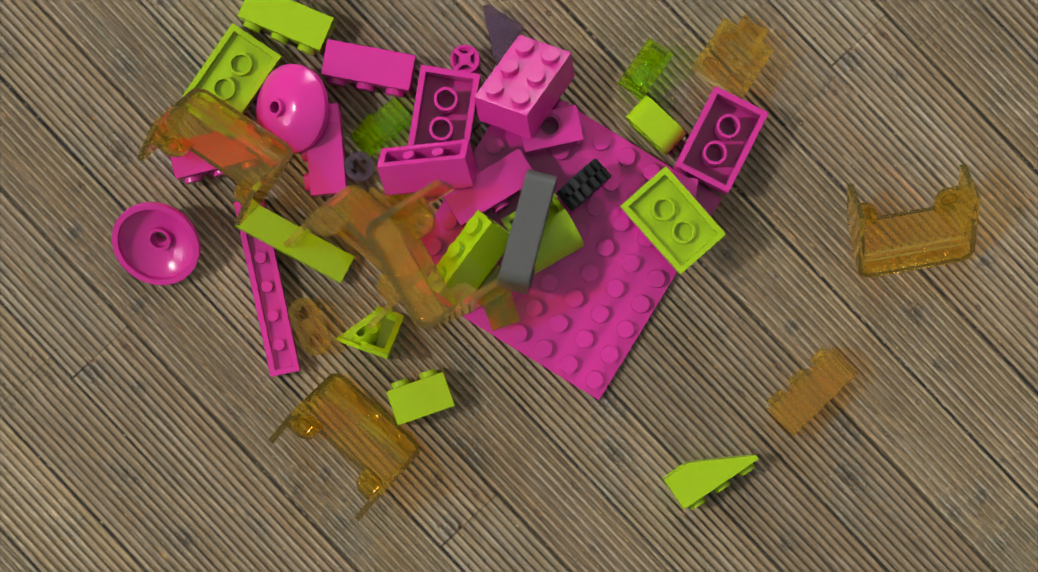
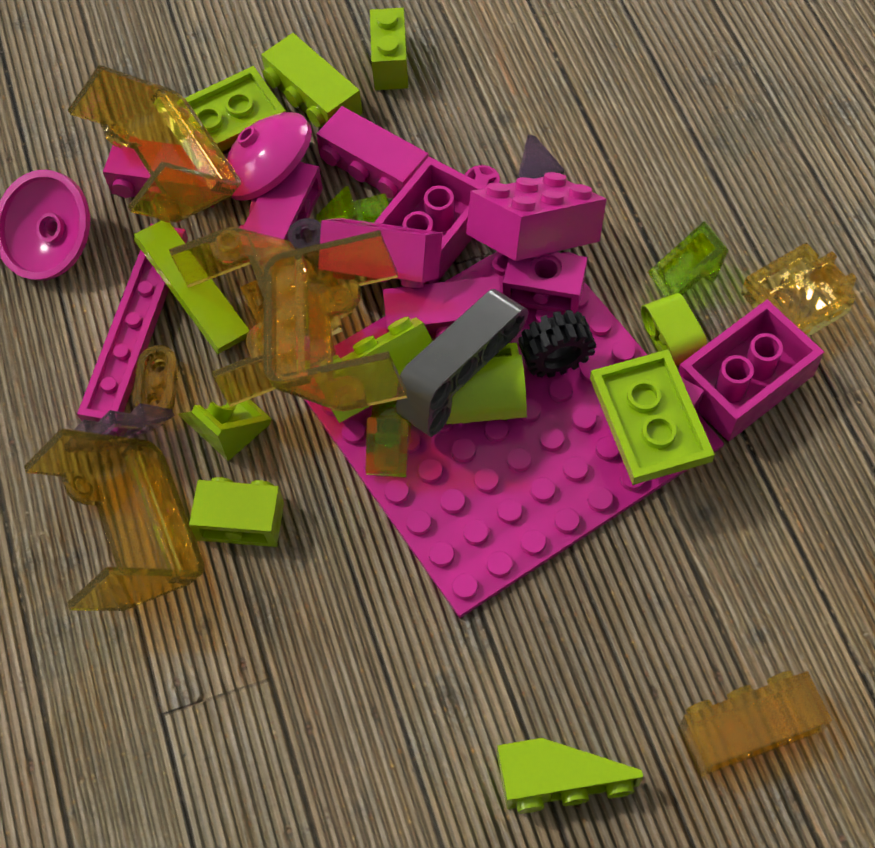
camera: 30 degrees right, 25 degrees down
(310, 378) = (134, 425): none -> brick

